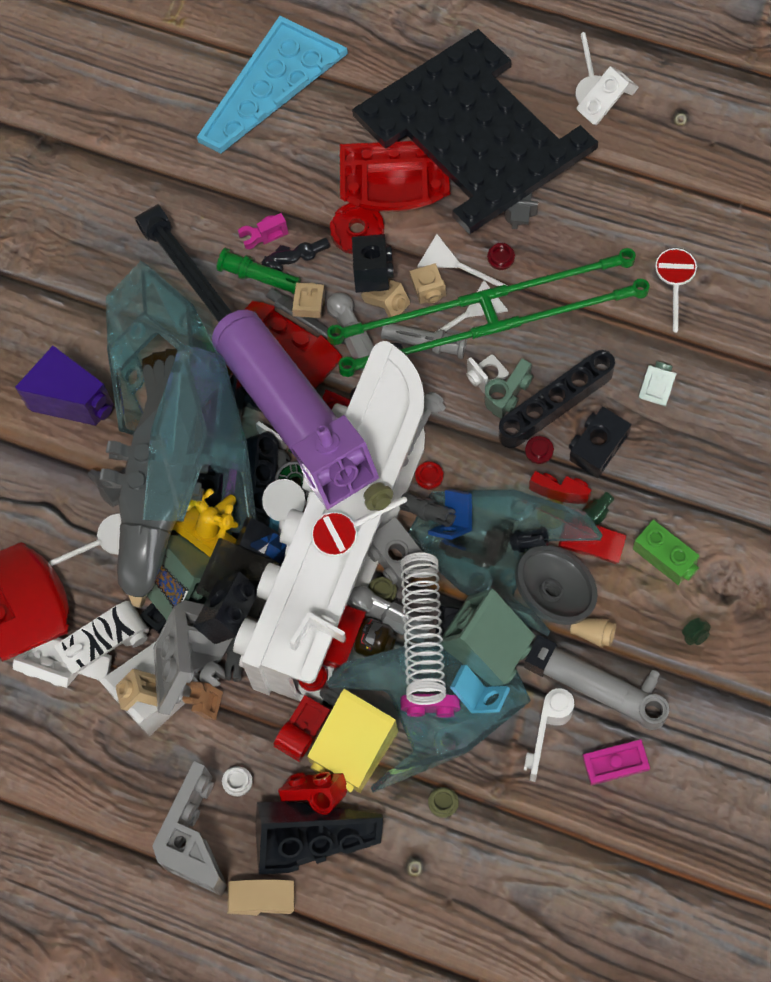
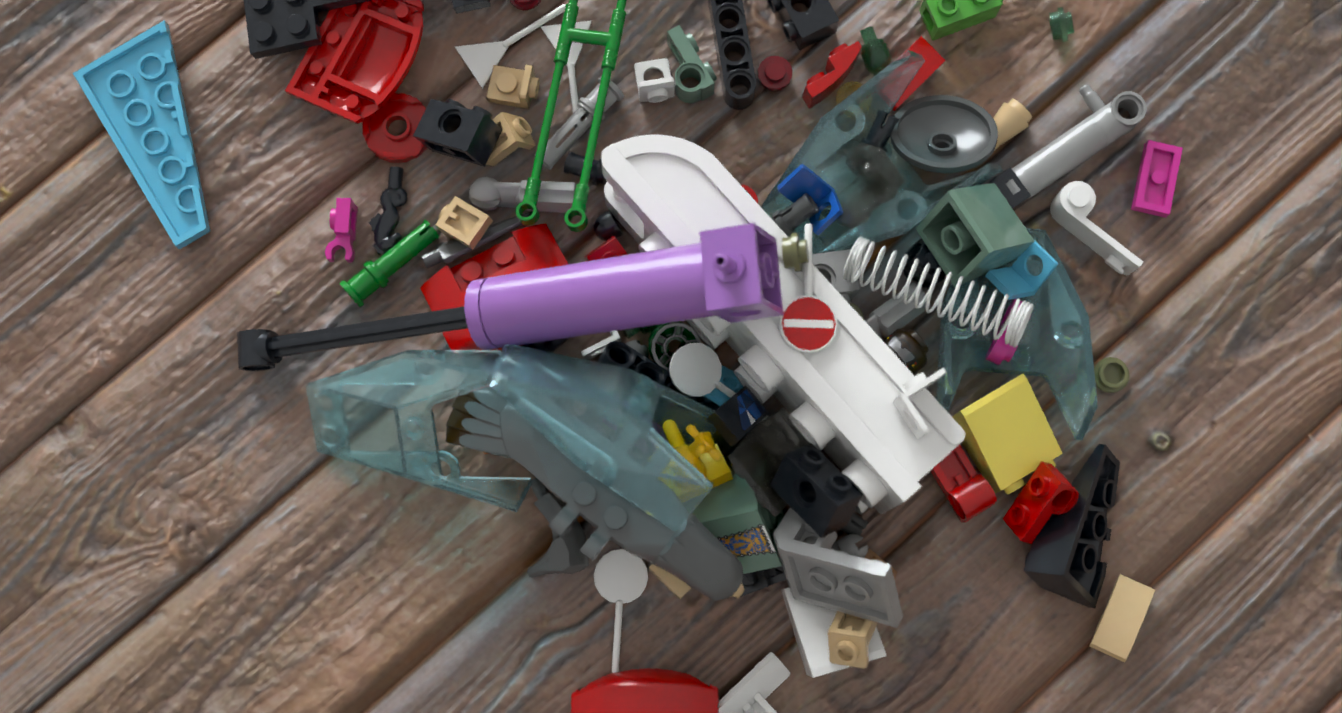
camera: 70 degrees left, 10 degrees up
(64, 390) = (419, 551): dark purple slope -> none
(115, 627) = (745, 652): white door -> none
(195, 860) = (1058, 671): light grey bracket -> none
(237, 781) = (979, 581): white plate -> none

